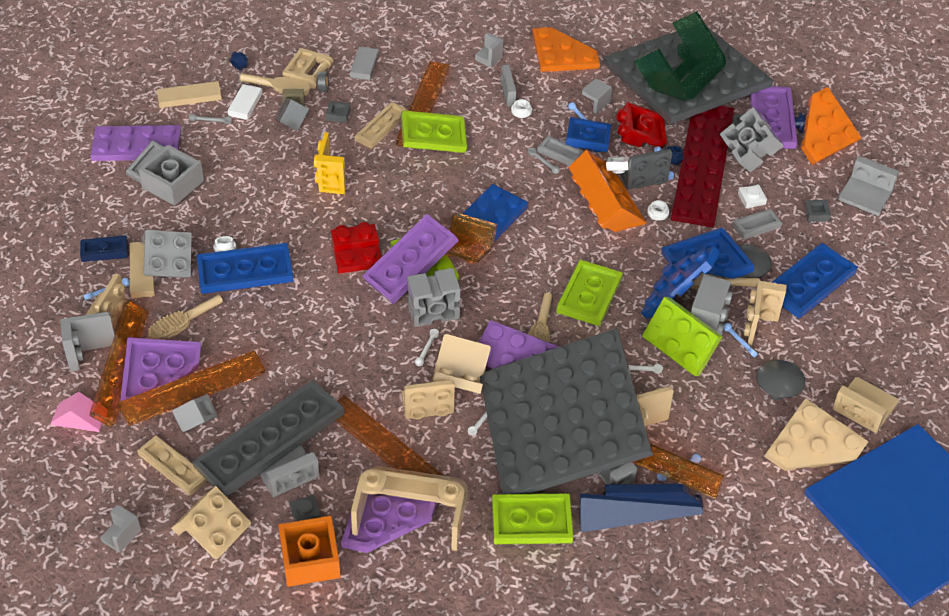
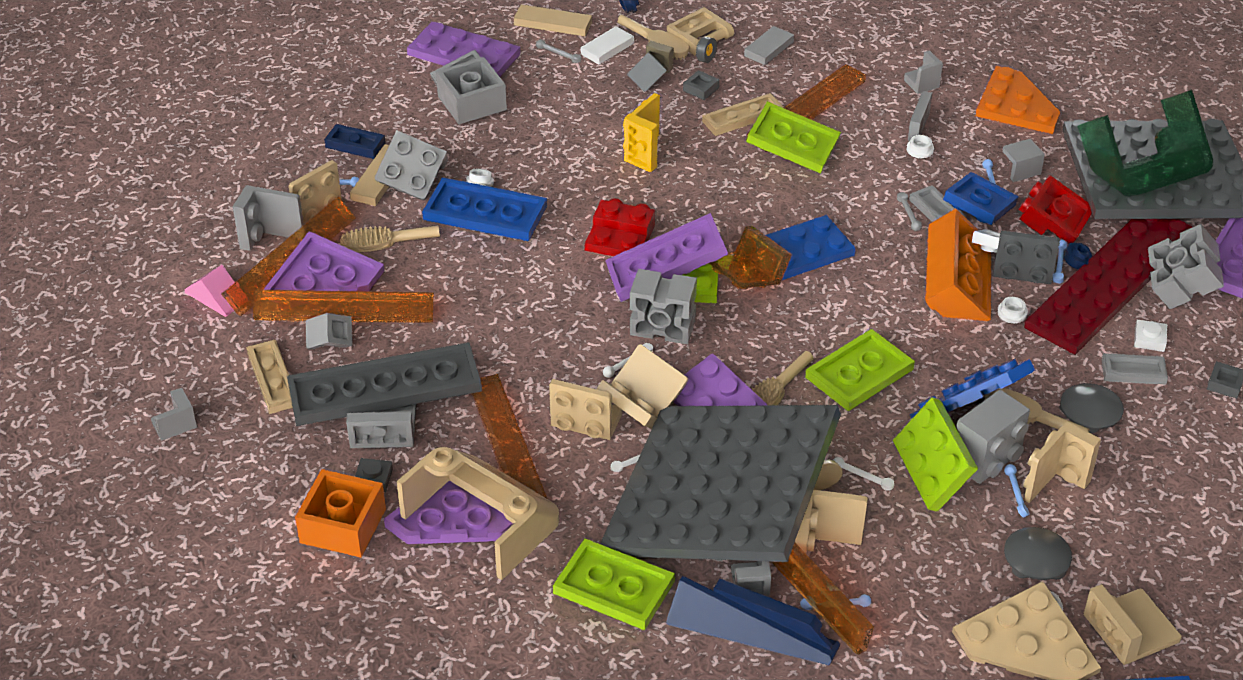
camera: 30 degrees right, 5 degrees down
(213, 522) = (268, 446): tan bracket -> none
(730, 262) = (1052, 387): blue plate -> none
(814, 279) = (1161, 456): blue plate -> none

